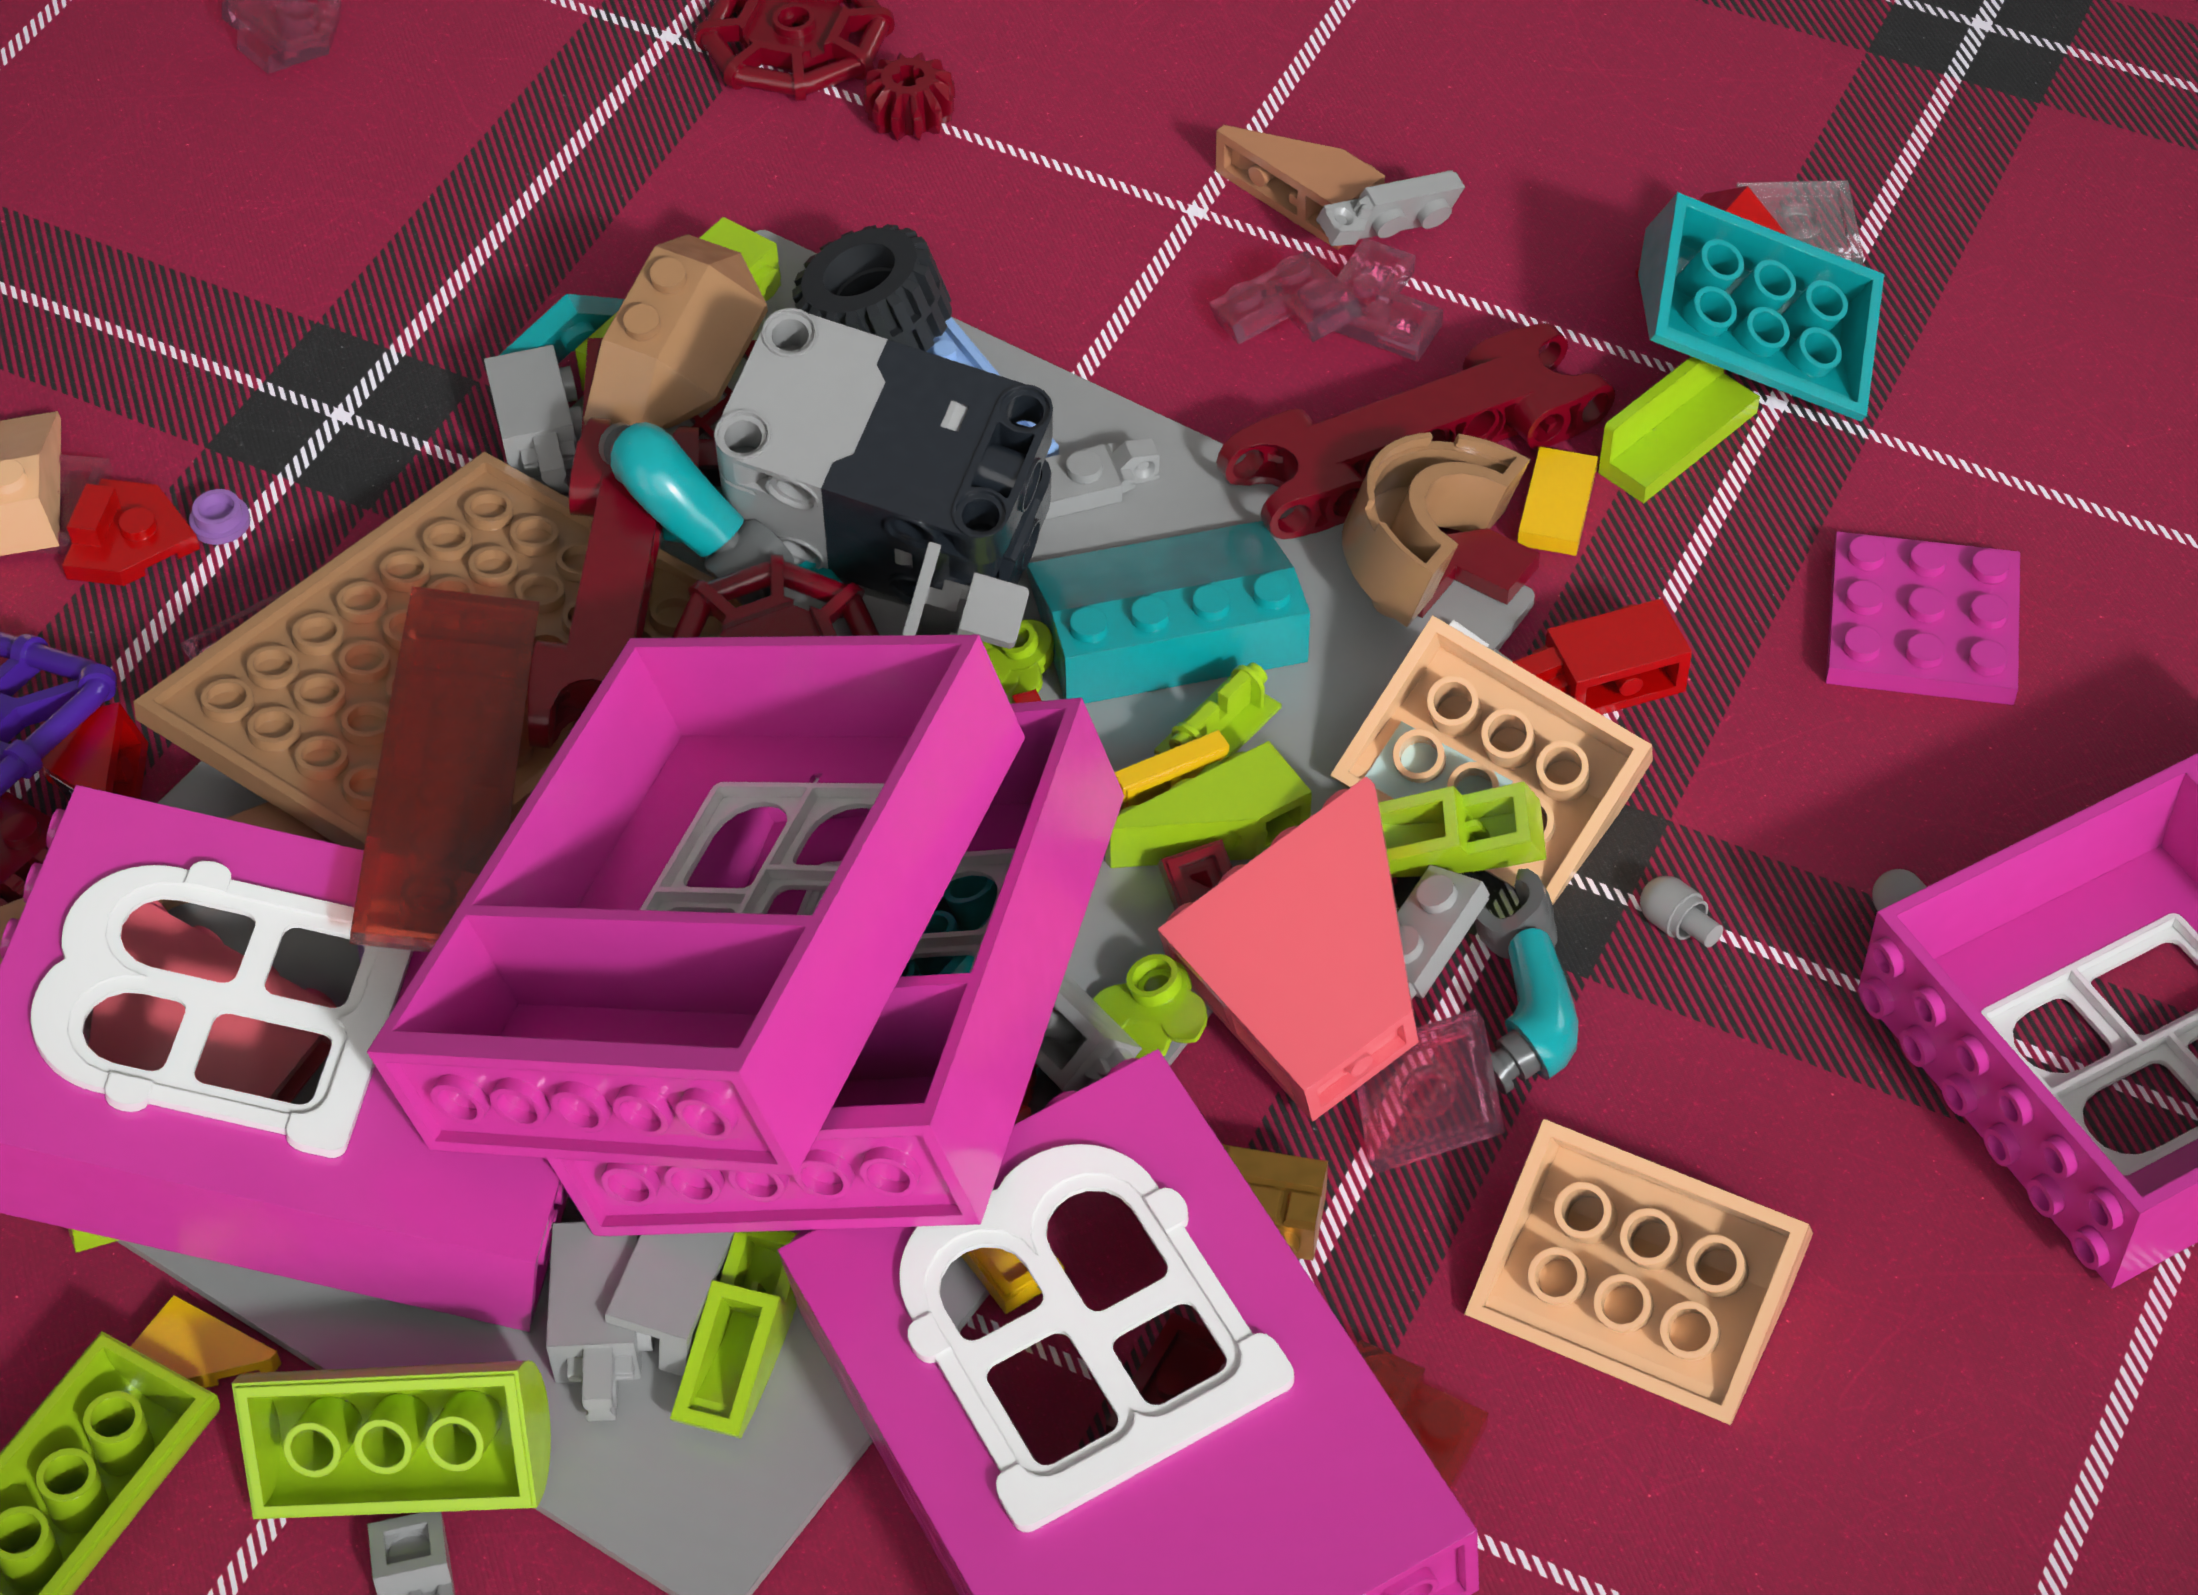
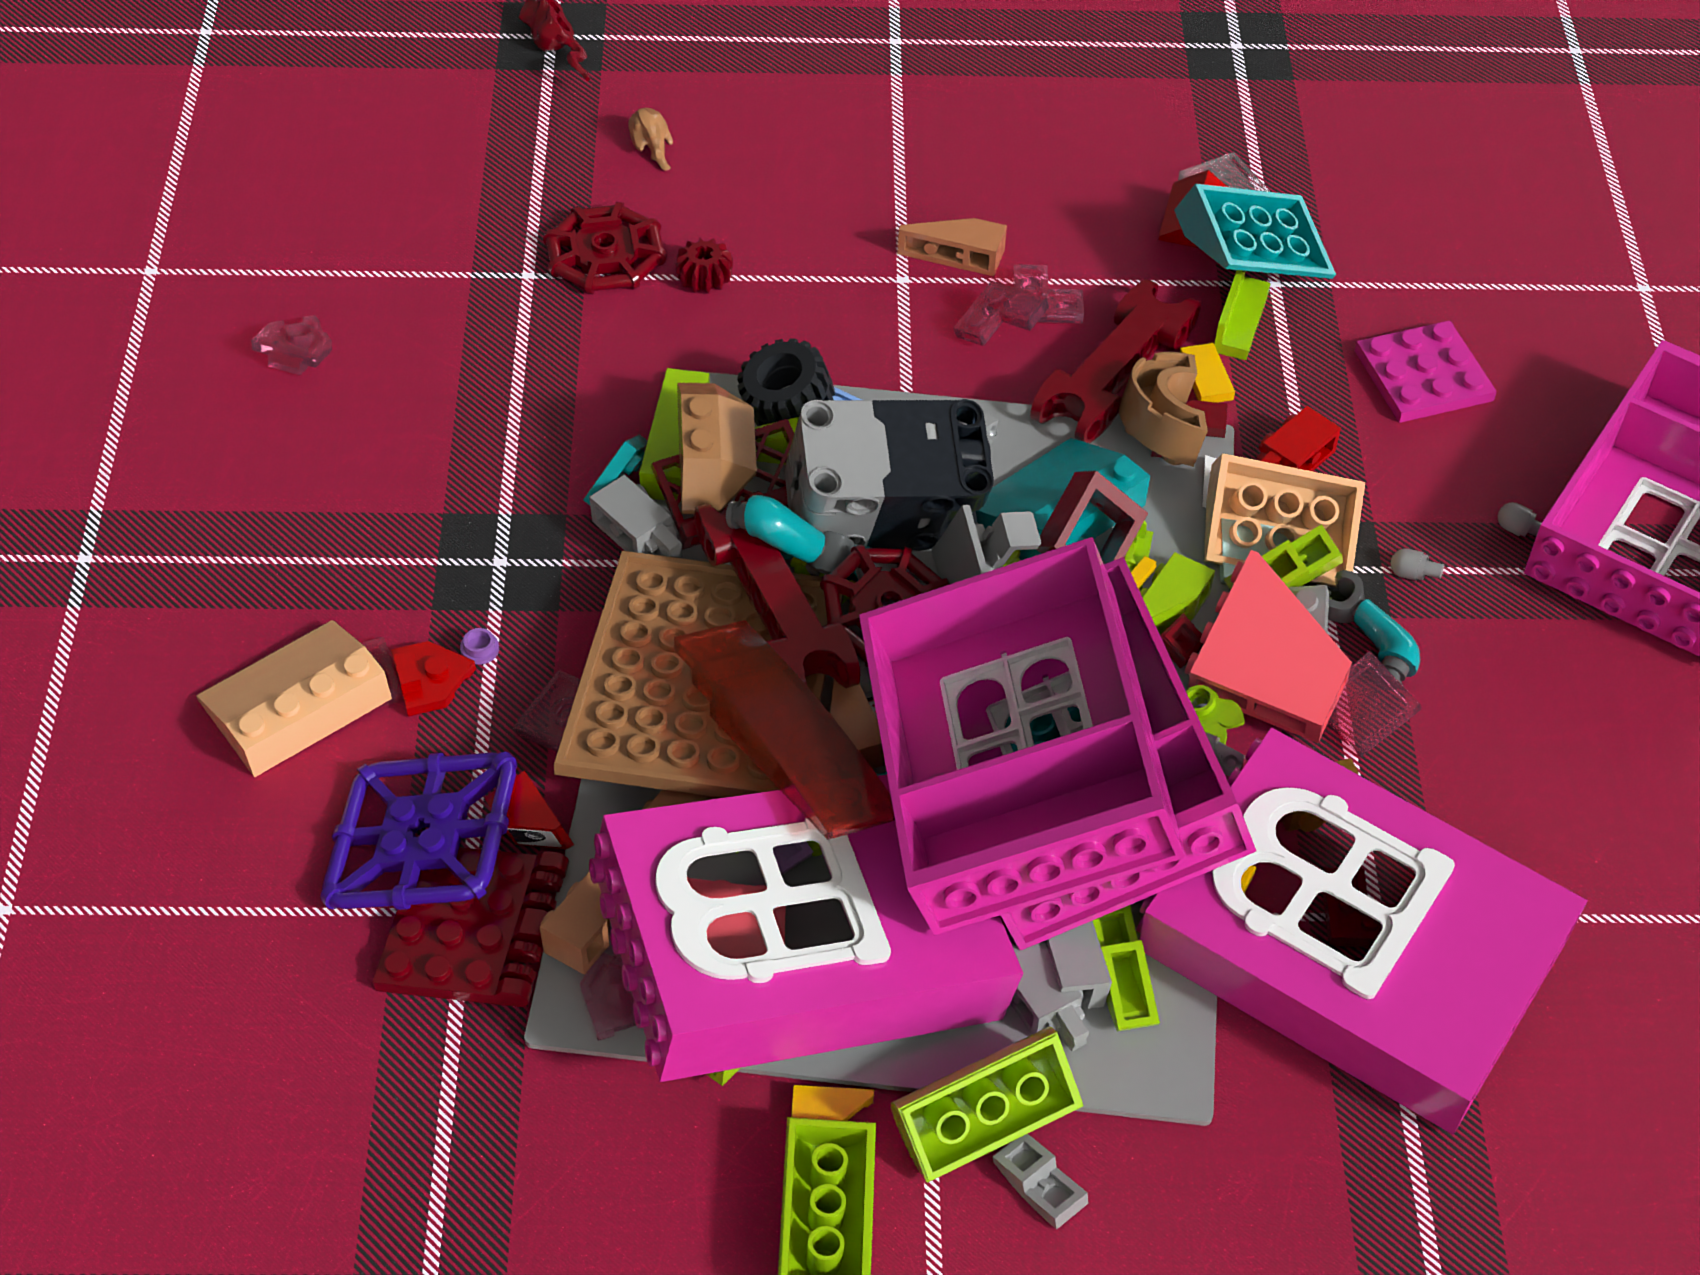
camera: 30 degrees left, 0 degrees up
(1202, 621) = (1094, 488): none -> dark red window
(1392, 208) = (1022, 242): light grey hinge -> none
(1639, 1271) = (1525, 751): light nougat slope -> none

